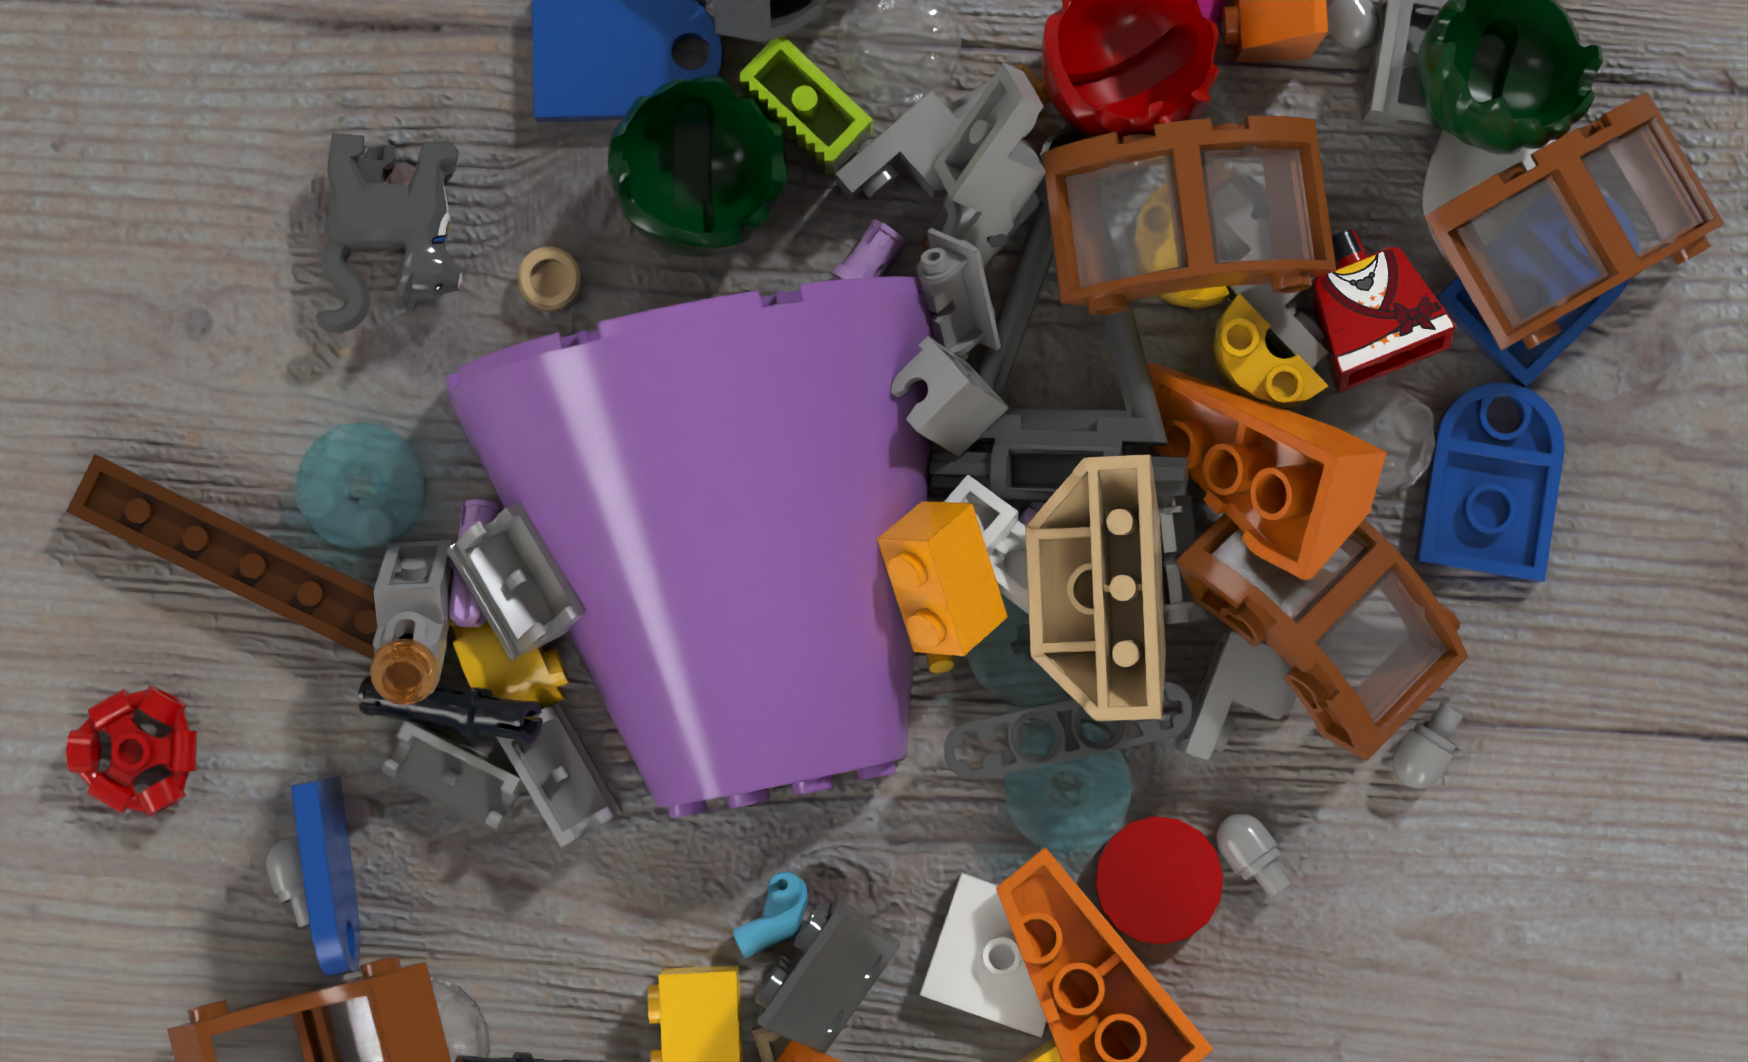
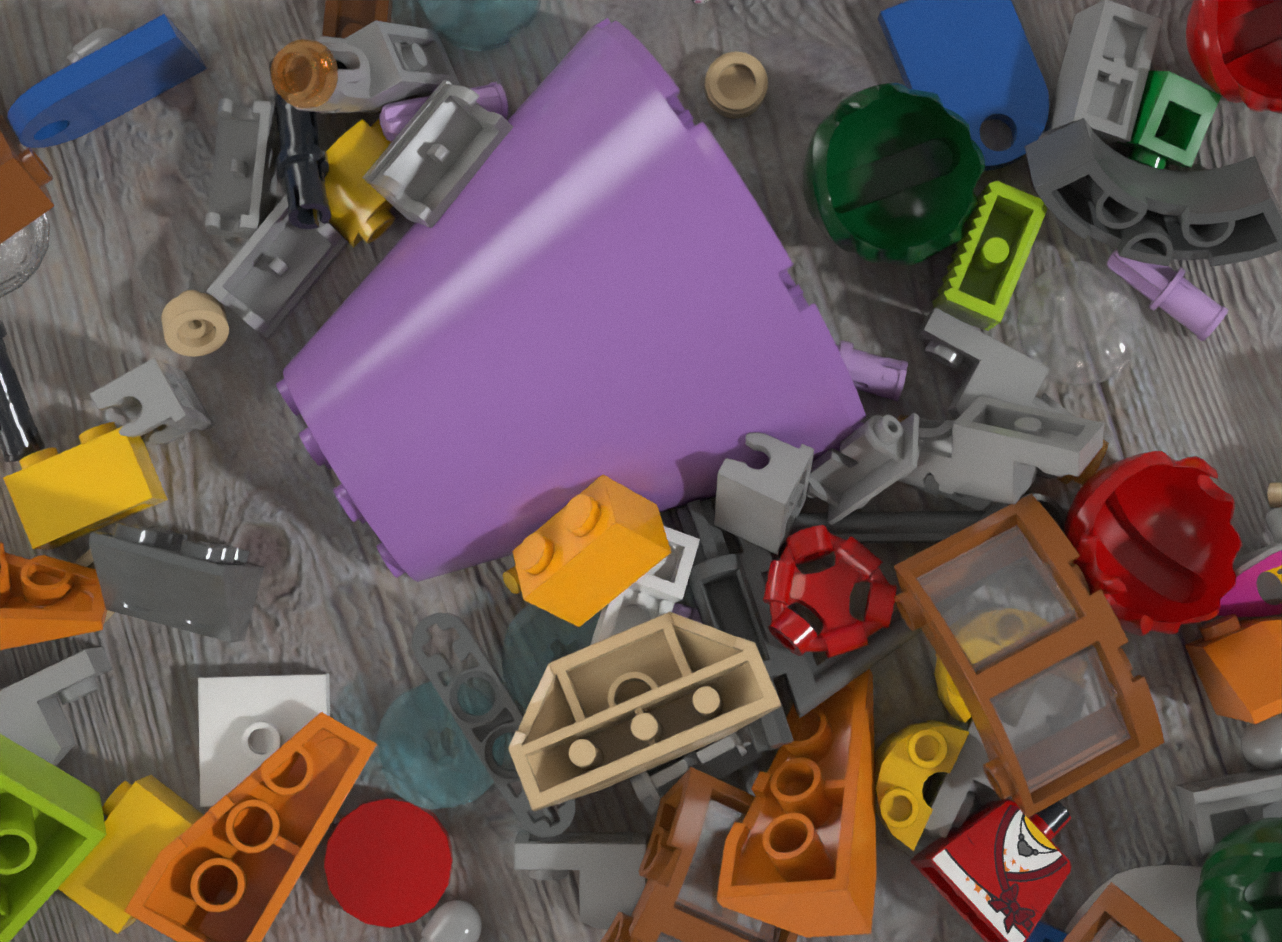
camera: 65 degrees right, 0 degrees up
(583, 874) = (194, 324): none -> tan tile
(651, 923) = (156, 396): none -> light grey hinge
(781, 915) = (222, 521): medium azure arm -> none
(1063, 376) = (826, 594): none -> red piece

